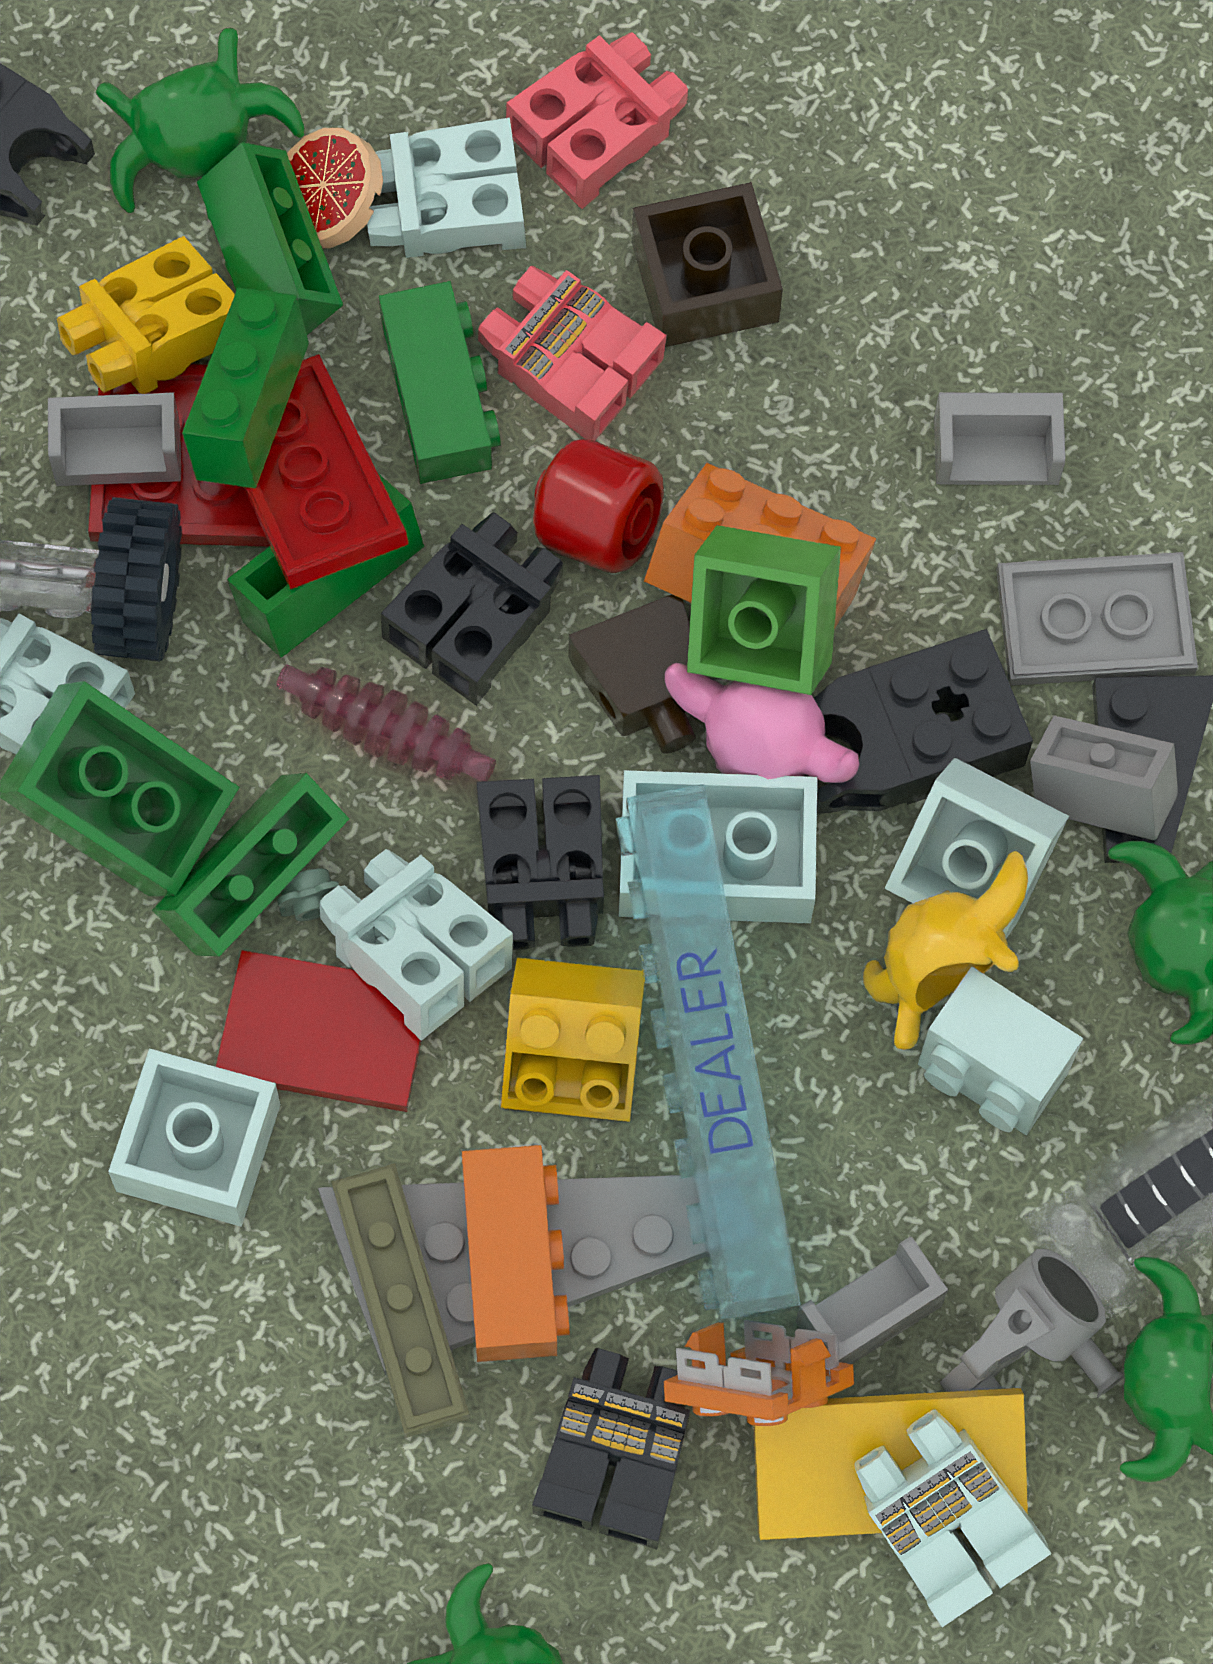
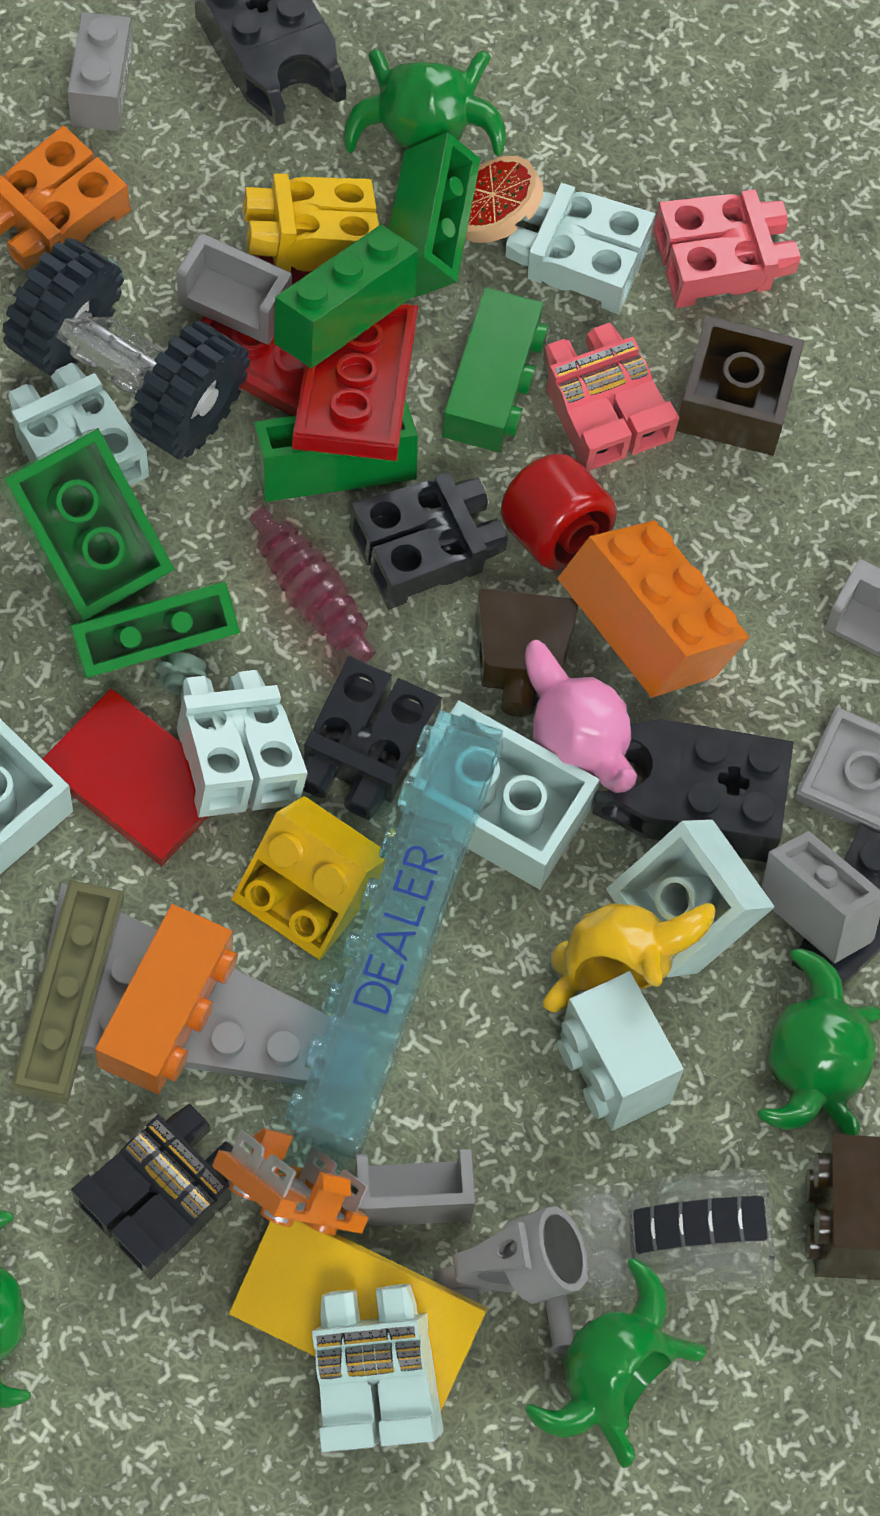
camera: 25 degrees right, 5 degrees down
(763, 609) = (624, 632): bright green brick -> none

